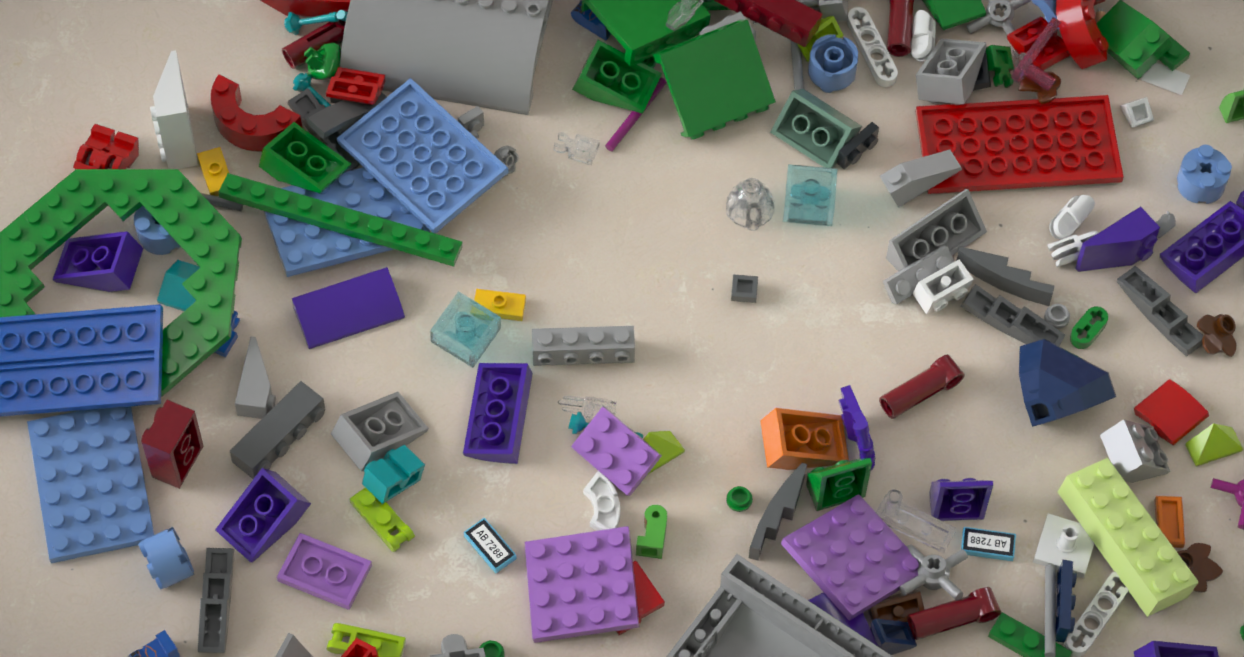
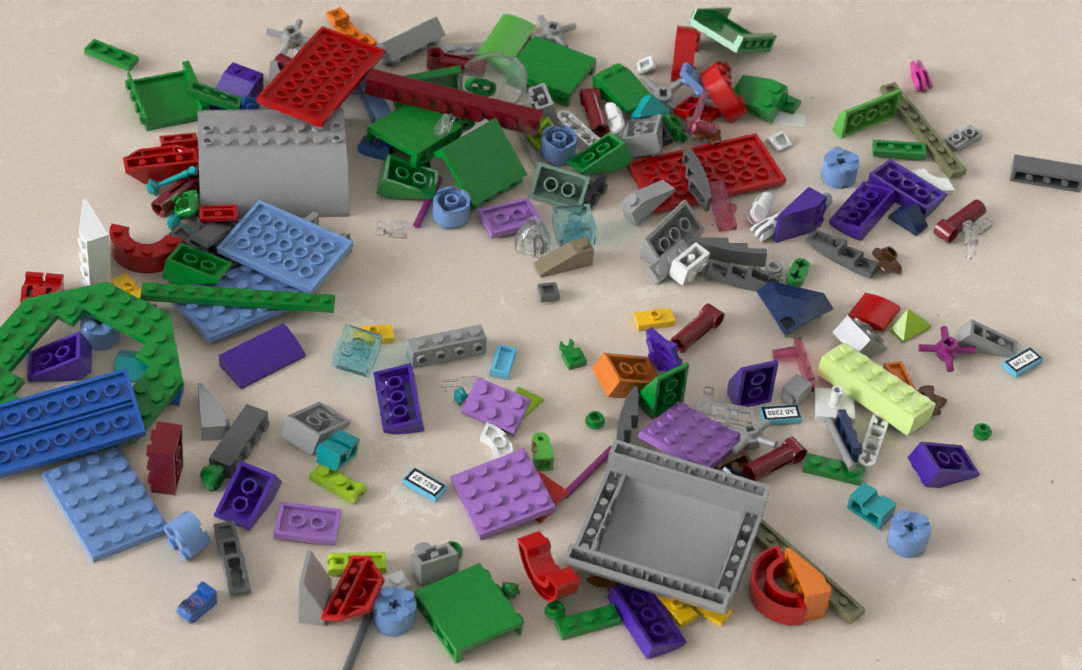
camera: 20 degrees left, 15 degrees down
(229, 476) = (213, 476): none -> green cone
(651, 381) = (503, 361): none -> medium azure tile
(659, 133) = (451, 207): none -> medium blue brick
(704, 574) = (588, 472): none -> magenta bar
(732, 161) = (507, 217): none -> medium lavender plate
(744, 393) = (572, 356): none -> green plate
(784, 241) = (568, 257): none -> dark tan slope
(871, 358) = (654, 318): none -> yellow plate
(881, 95) = (602, 156): none -> green slope
(973, 28) = (649, 106): none -> teal slope
(998, 157) = (697, 178): none -> dark grey slope
(1019, 202) = (722, 208): none -> clear pink piece
(1019, 514) = (796, 390): none -> light grey brick
(1042, 453) = (798, 352): none -> clear pink piece

